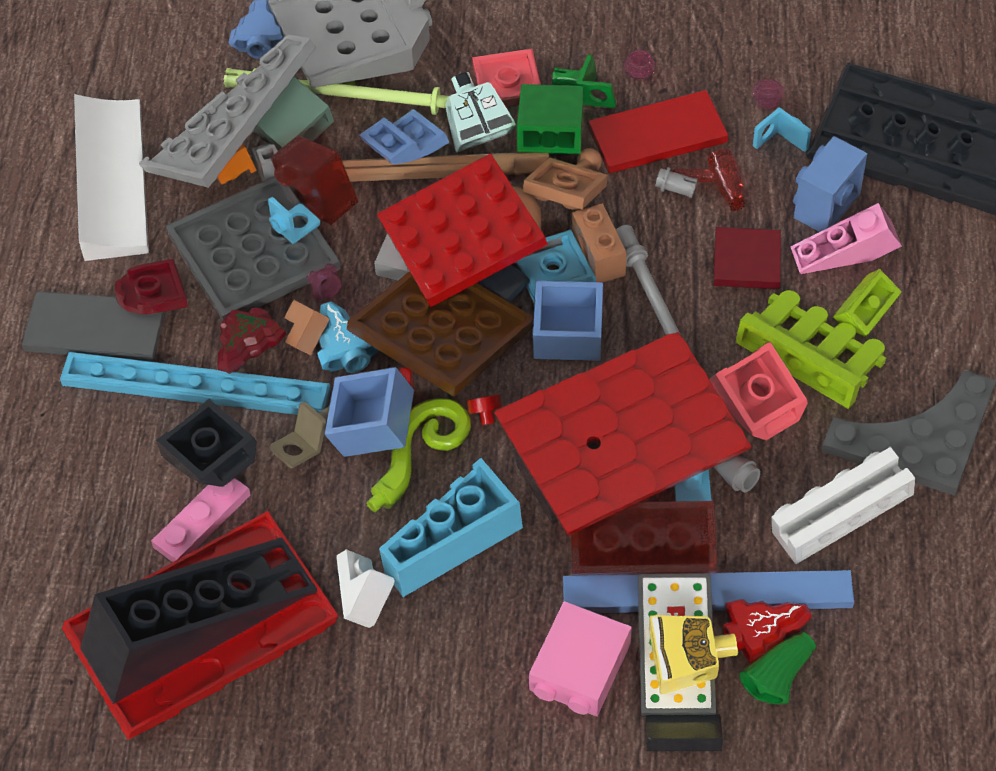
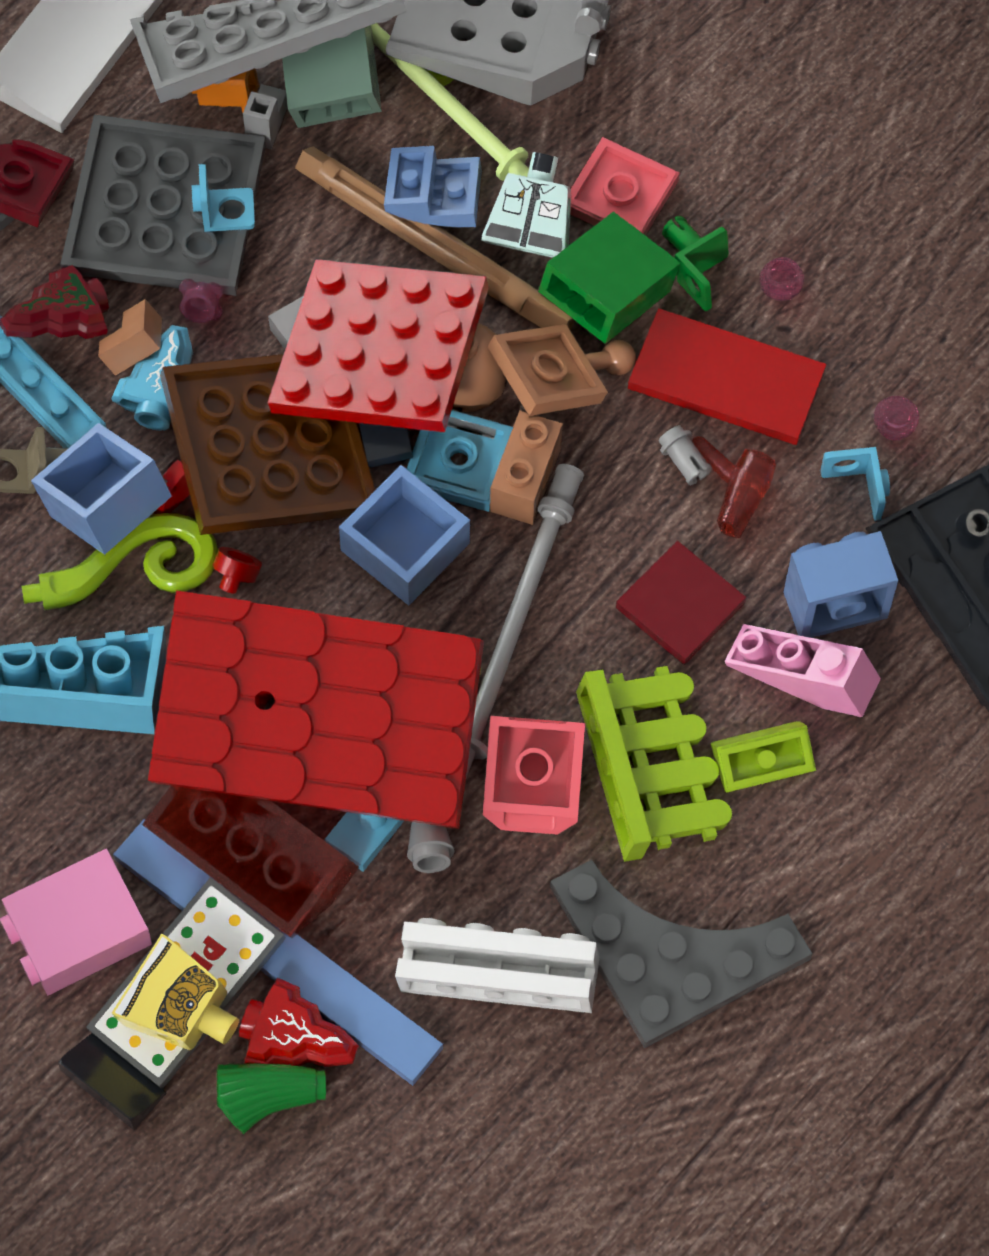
camera: 35 degrees right, 10 degrees up
(317, 175) = (285, 170): clear red brick -> none

